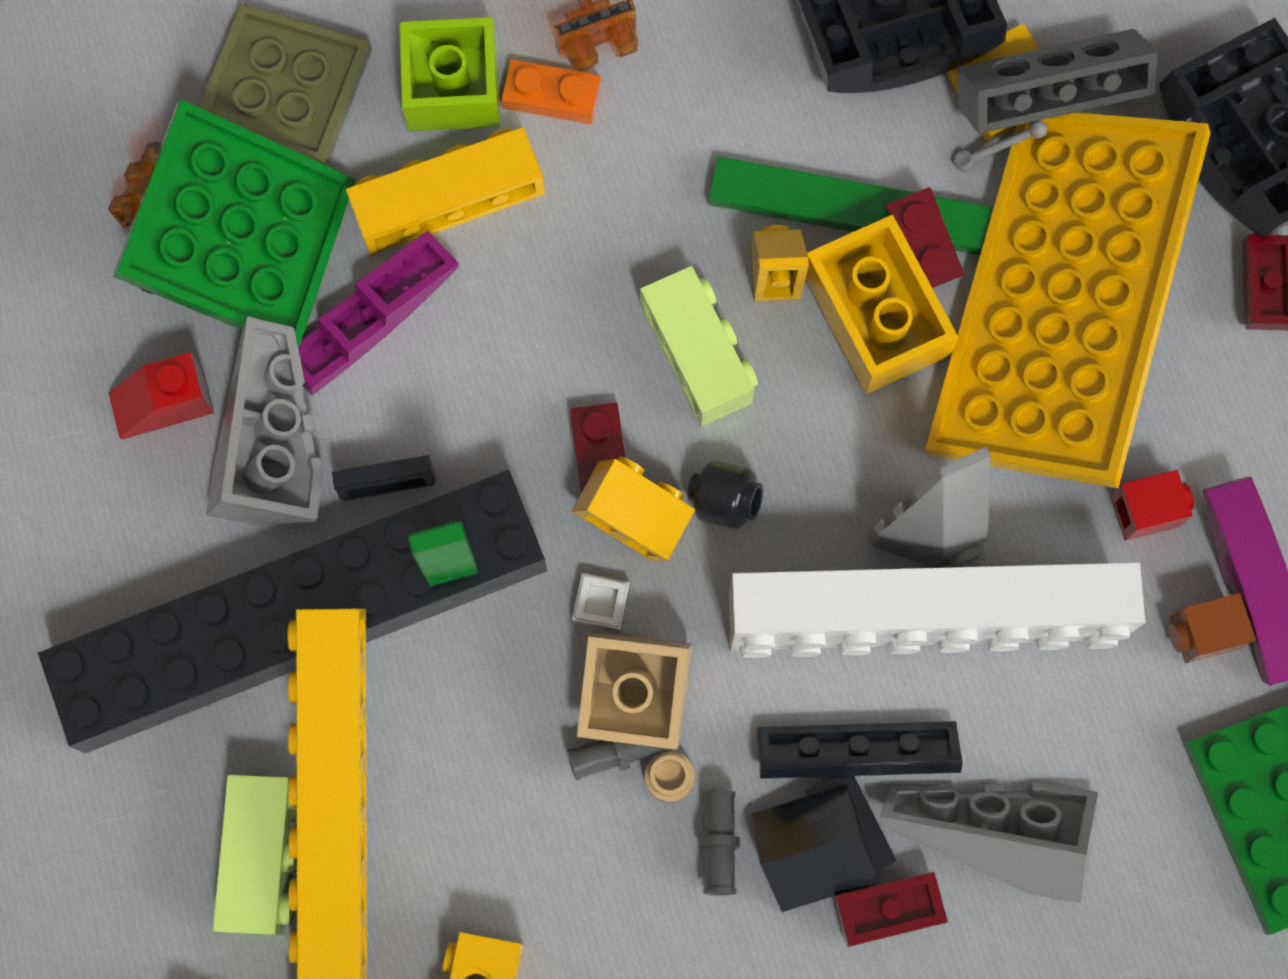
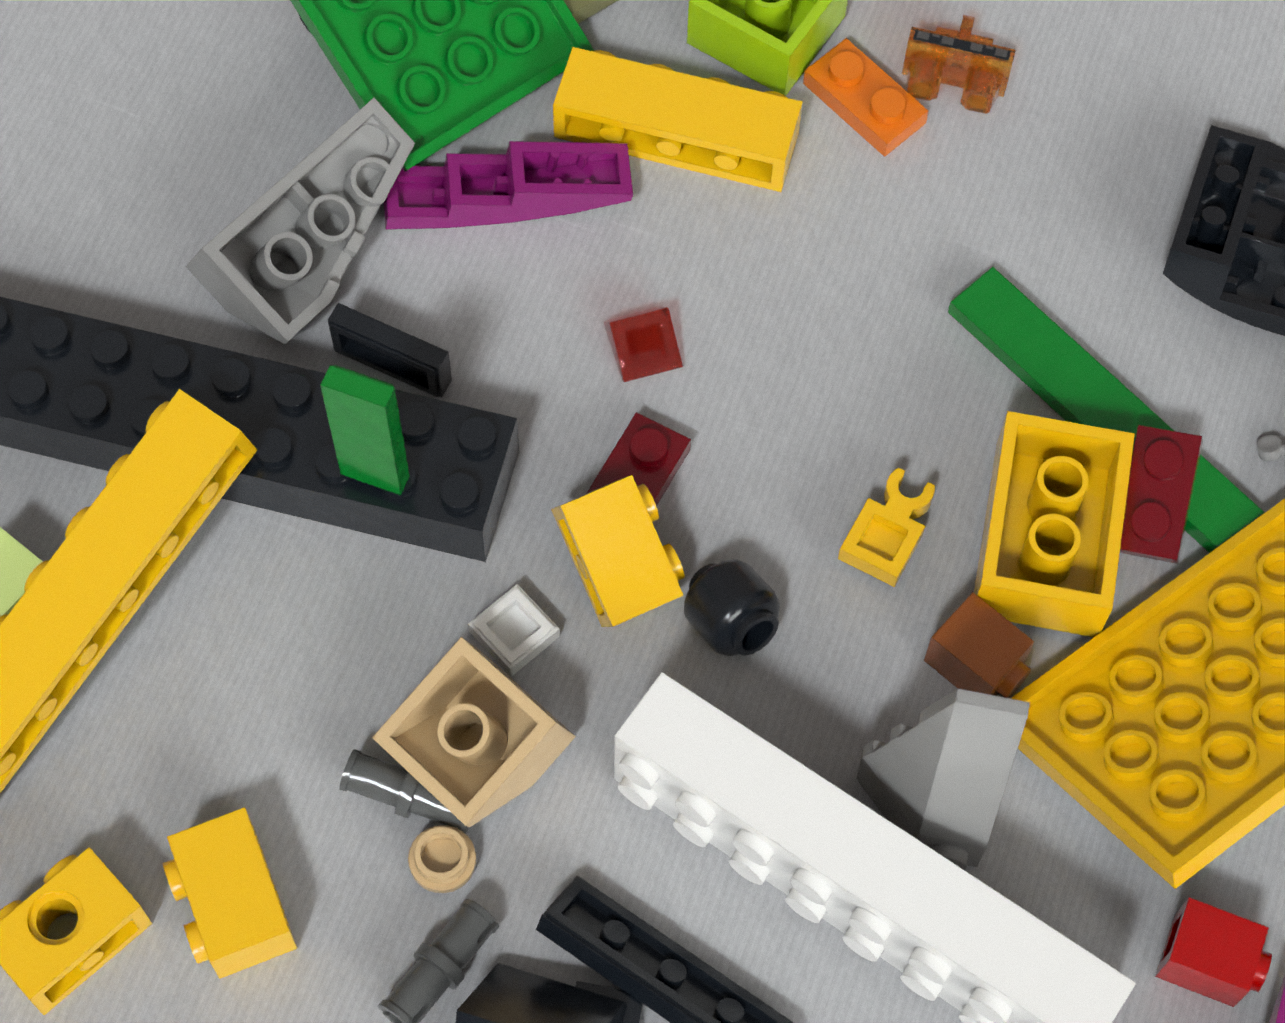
camera: 35 degrees right, 10 degrees down
(160, 396) = (239, 129): red slope -> none
(536, 357) = (643, 343): none -> clear red slope
(562, 893) = (229, 893): none -> yellow brick
(698, 345) = (822, 439): yellowish green brick -> none
(778, 263) = (970, 411): yellow slope -> none
(780, 382) = (887, 535): none -> yellow plate
(892, 416) = (980, 650): none -> dark orange brick

